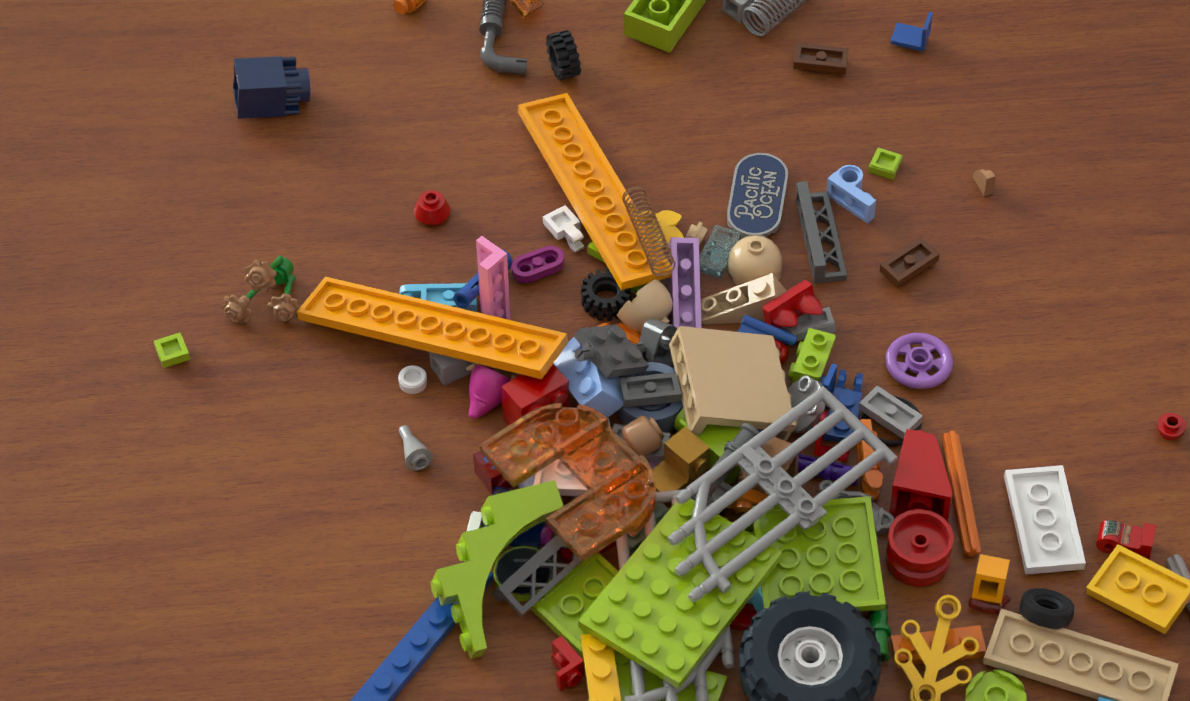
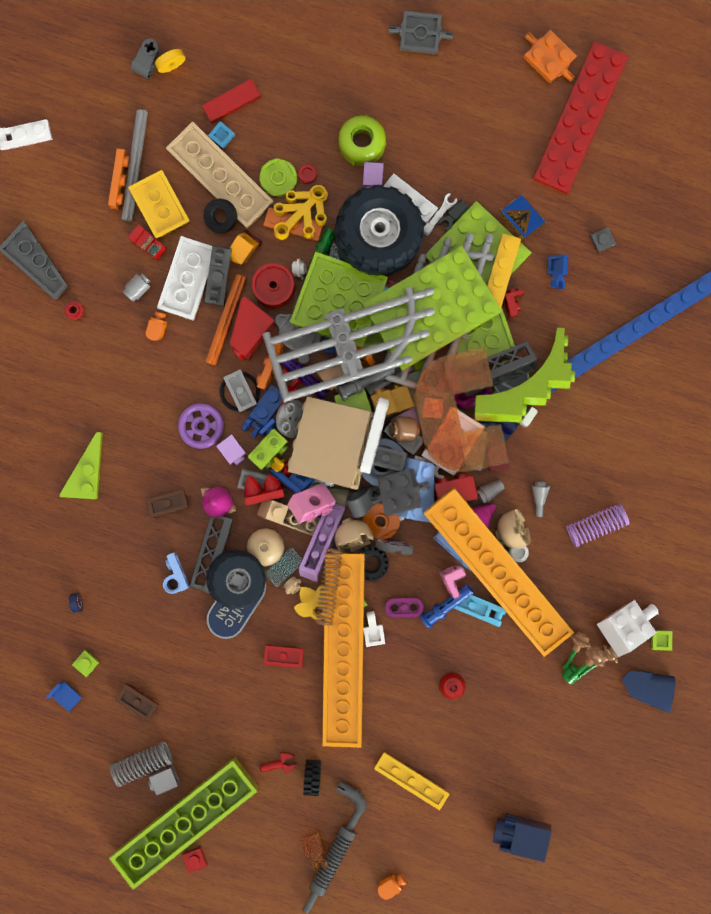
camera: 160 degrees left, 35 degrees up
(167, 292) = (651, 688): none -> dark blue panel
(225, 337) = (628, 627): none -> white brick
(342, 423) = (620, 513): none -> lavender piece
(431, 390) = (512, 530): none -> tan cylinder
(436, 100) = (411, 780): none -> yellow plate
(489, 424) = (489, 491): none -> light grey cone
(584, 311) = (393, 546): none -> dark grey tile
(607, 65) = (279, 764): none -> red bar
(666, 162) = (283, 656): none -> red plate
(679, 397) = (374, 436): none -> white beam
(729, 300) = (311, 503): none -> bright pink brick
(772, 200) = (236, 579): none -> black wheel
(792, 343) = (278, 464): none -> yellow hand
(846, 284) = (217, 501): none -> dark pink hat
(861, 346) = (232, 450): none -> lavender brick
(885, 163) = (139, 594): lime tile -> none
(896, 589) = (299, 268): none -> white plate
(907, 75) = (86, 663): none -> lime plate
(958, 124) = (75, 602): none -> dark blue tile
(985, 181) = (83, 546): medium nougat tile -> none
(1003, 531) = (218, 275): none -> dark grey plate
(1032, 255) = (85, 477): none -> lime wing
(1049, 446) = (156, 326): none -> orange arm
(1106, 482) = (136, 287): none -> light grey brick

